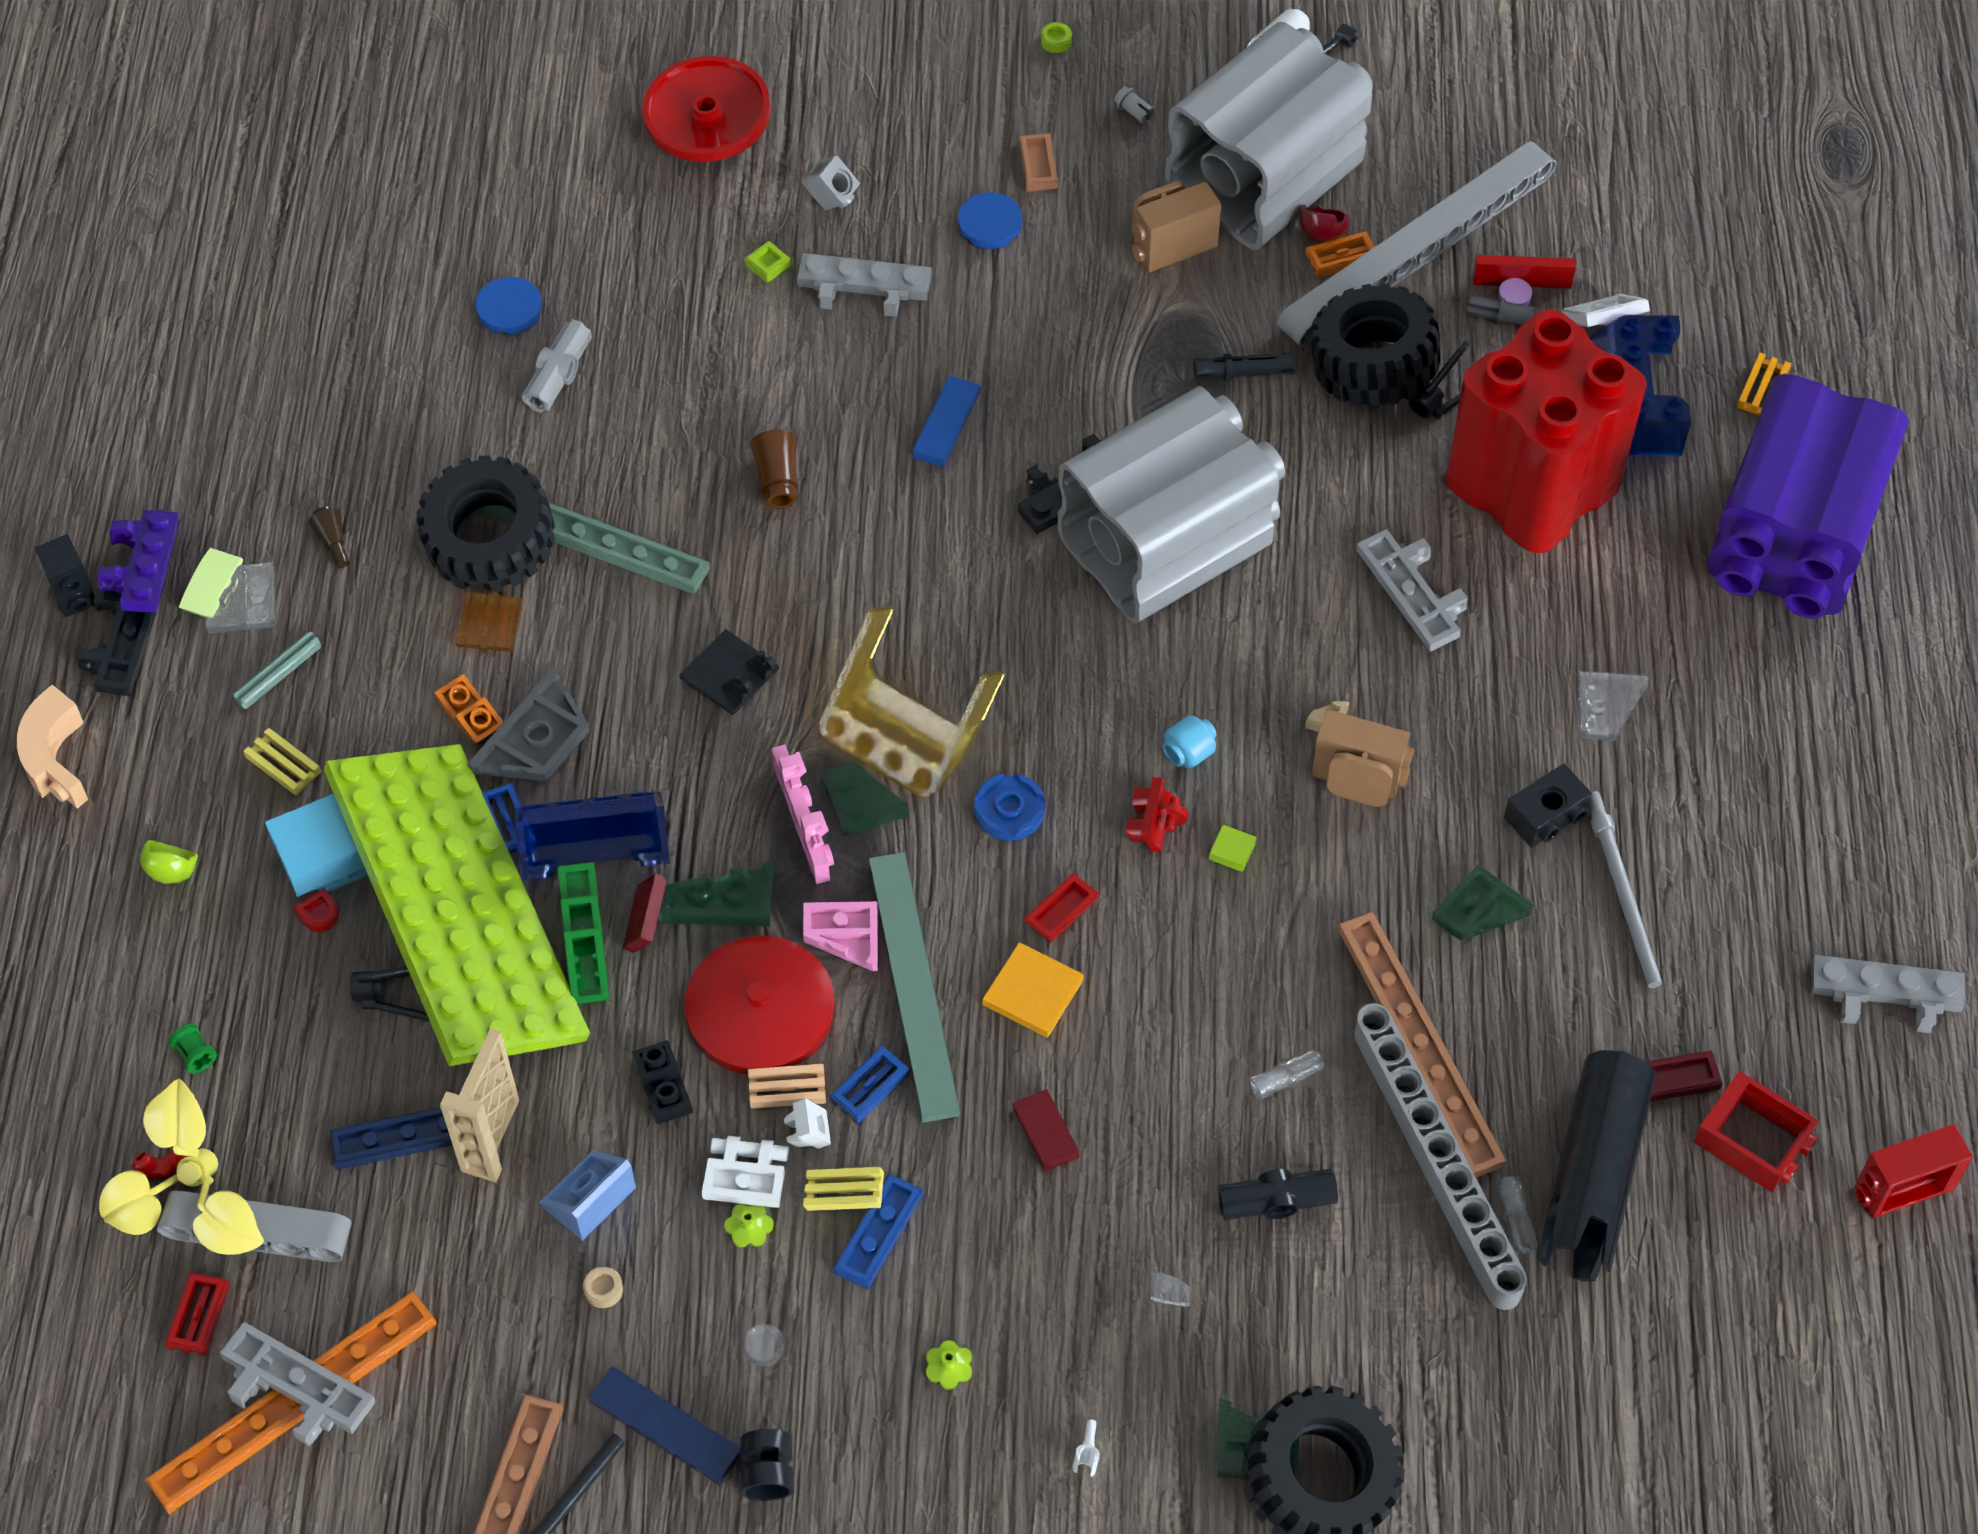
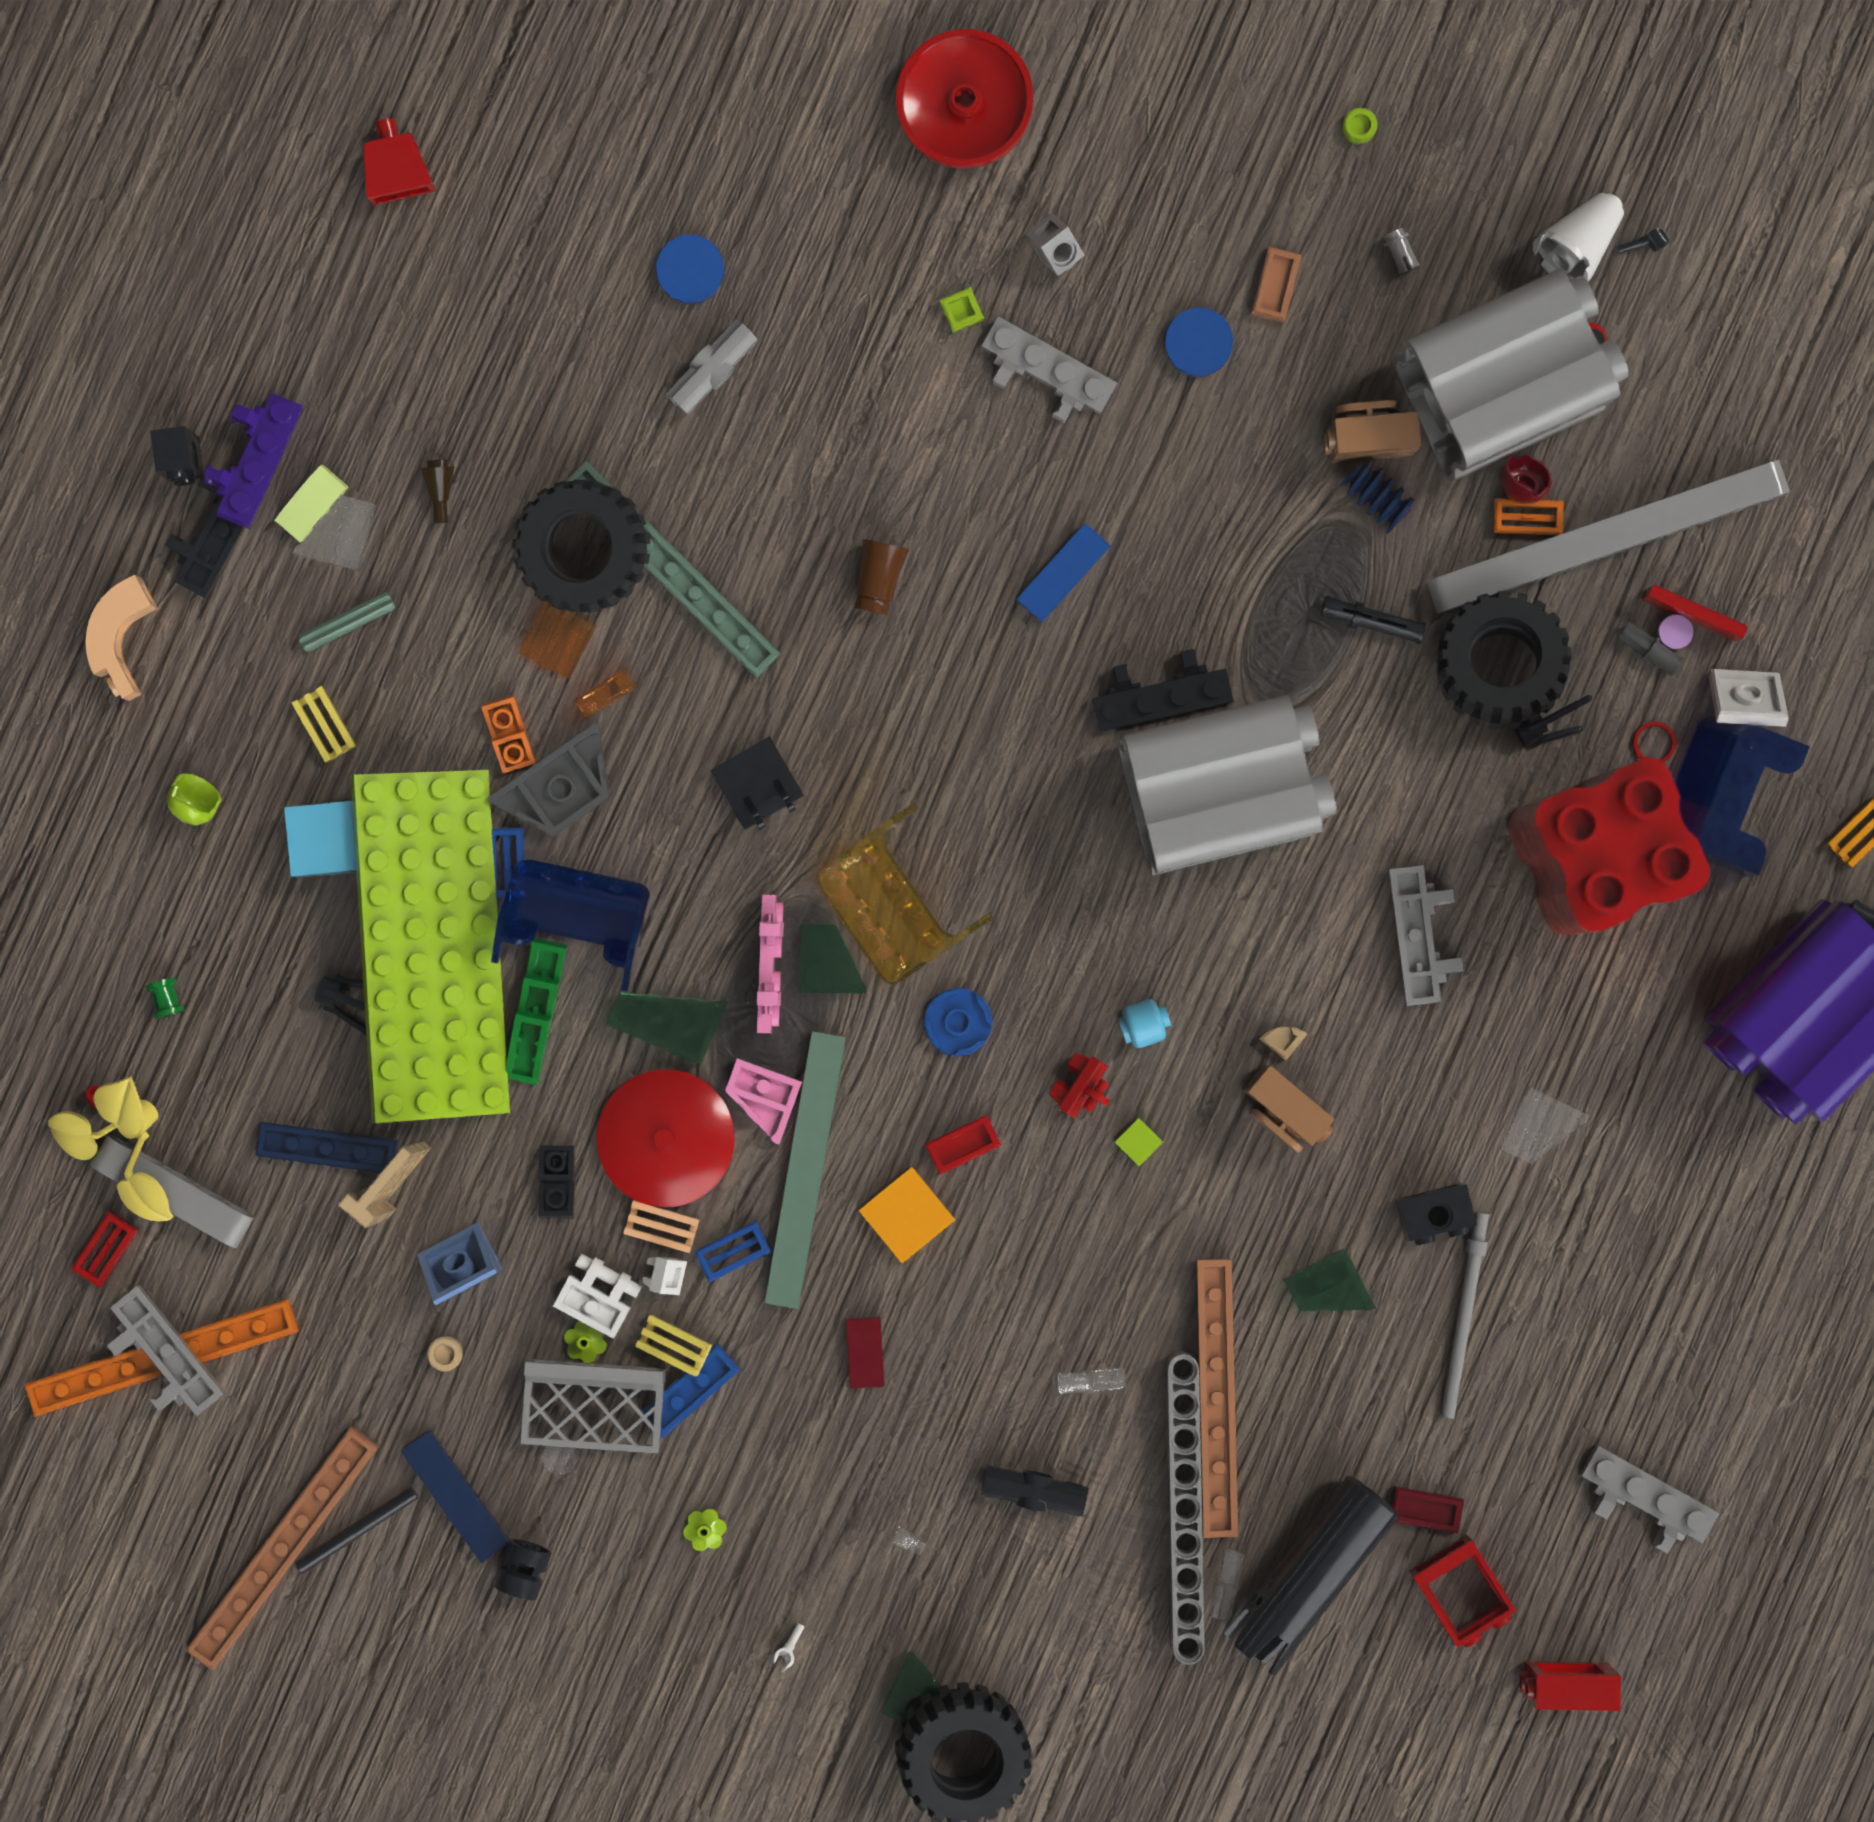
camera: 20 degrees right, 30 degrees up
(209, 309) = (394, 166): none -> red torso
(318, 911) = (312, 896): red tile -> none
(550, 649) = (600, 697): none -> clear orange bar
(644, 913) = (595, 1013): dark red tile -> none
(775, 1242) = (595, 1375): none -> light grey fence
(1201, 272) = (1378, 494): none -> dark blue piece

